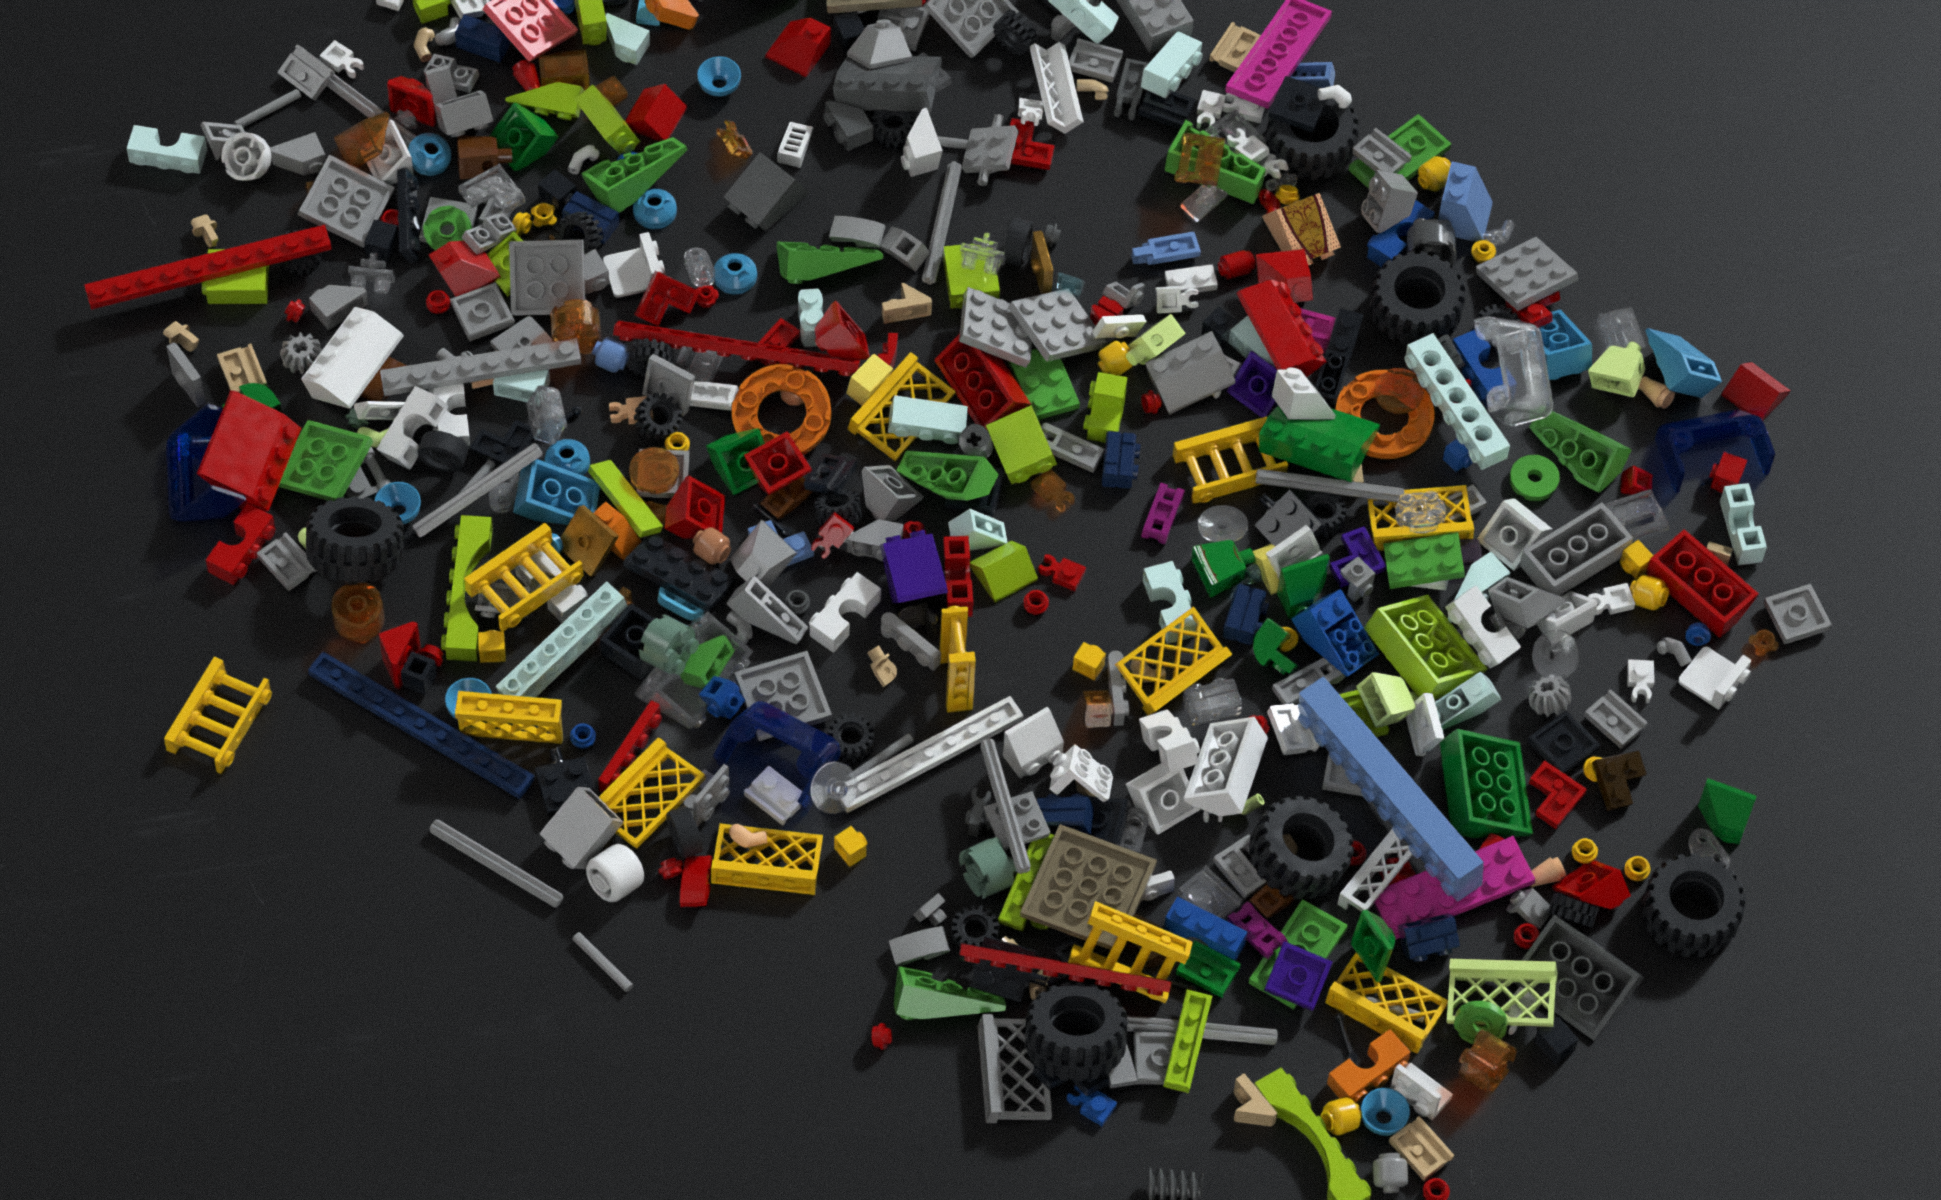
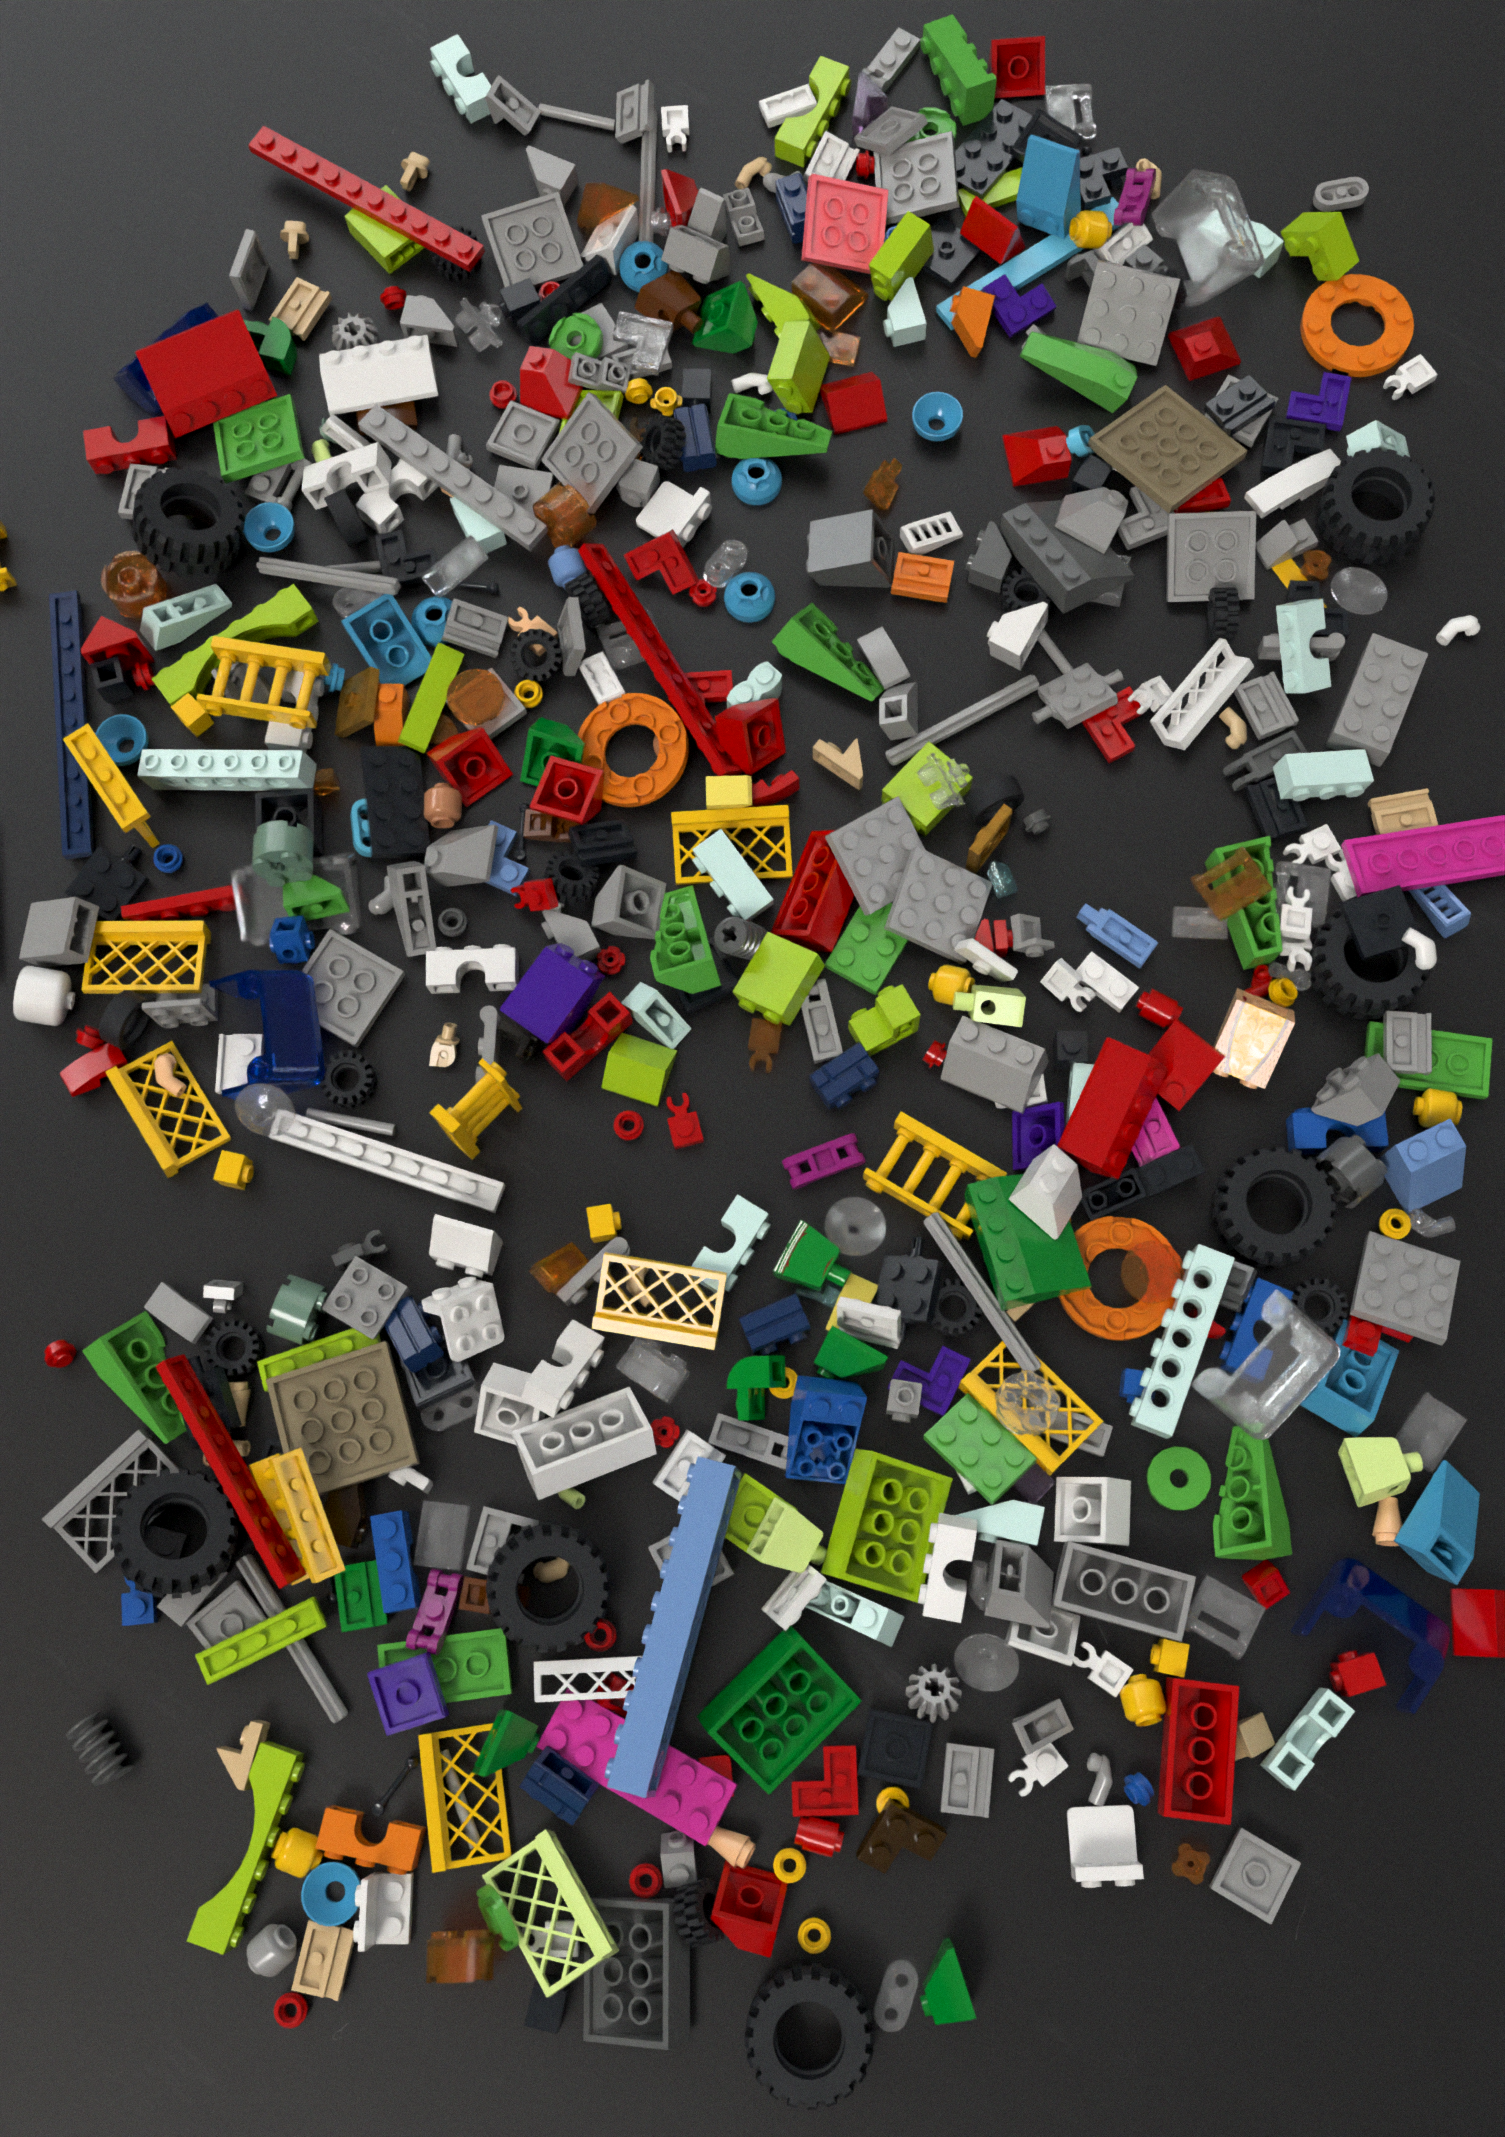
camera: 60 degrees right, 15 degrees up
(246, 156) = (505, 138): white cylinder -> none
(410, 597) = (182, 616): none -> light aqua slope
(526, 75) = (791, 269): red cone -> none
(600, 437) = (474, 628): none -> light grey plate
(821, 14) = (1078, 440): none -> medium azure plate
(822, 169) = (922, 577): none -> orange plate
(1005, 806) = (360, 1277): light grey axle -> none
(1581, 820) = (819, 1836): none -> red brick
(1617, 657) = (1042, 1726): none -> light grey slope

